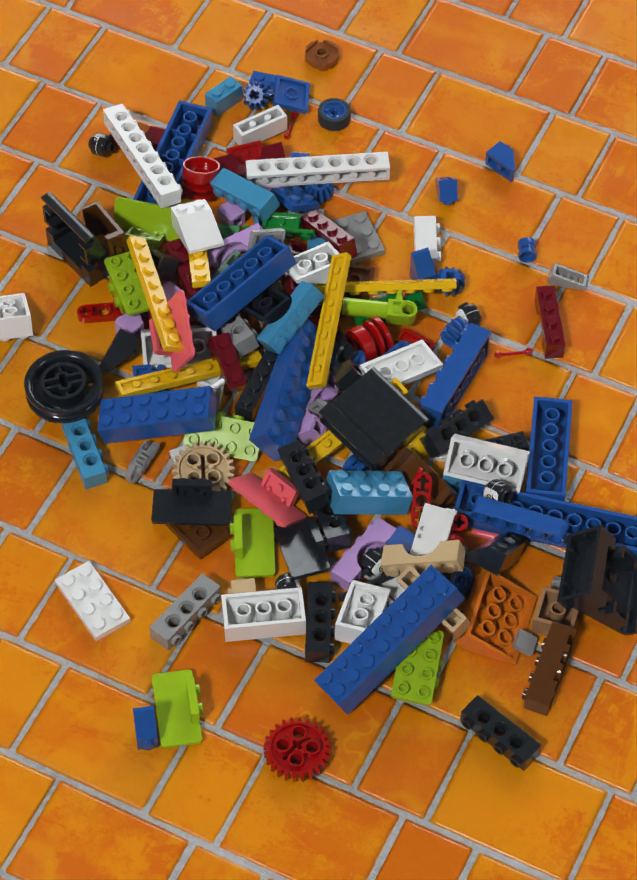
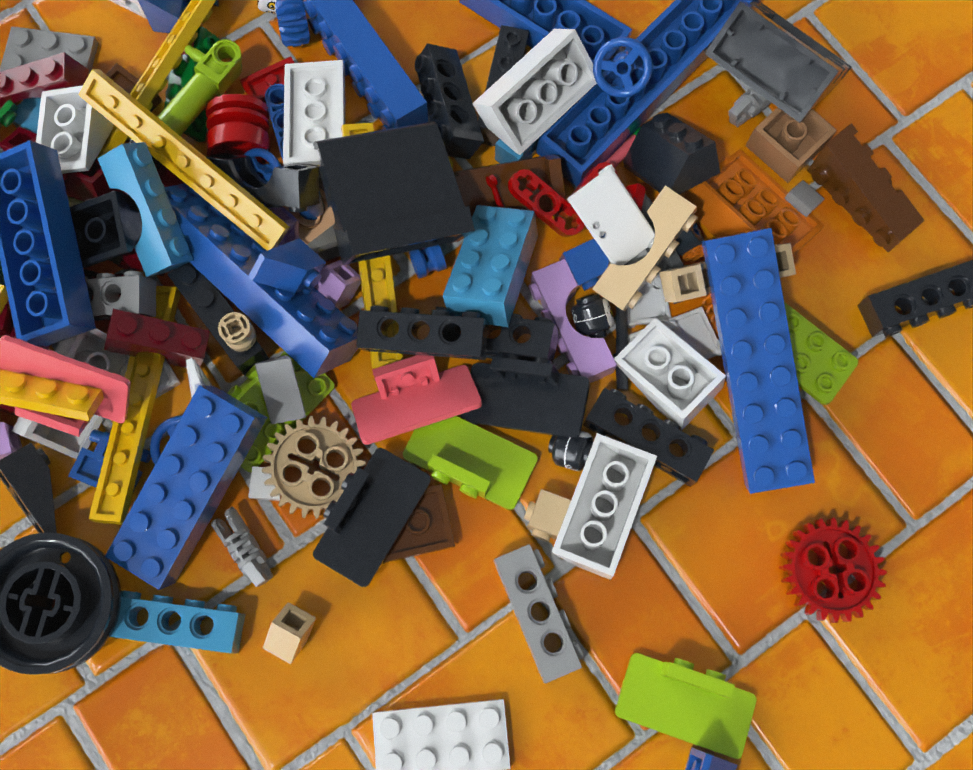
camera: 65 degrees left, 20 degrees up
(108, 500) = (289, 633): none -> tan brick
(233, 430) = (280, 389): none -> light grey slope
(251, 392) = (241, 337): none -> tan wheel
(300, 394) = (288, 267): none -> blue slope
(498, 491) = (595, 102): black head -> none
(519, 520) = (649, 100): blue beam -> none
(530, 497) = (629, 58): none -> blue piece

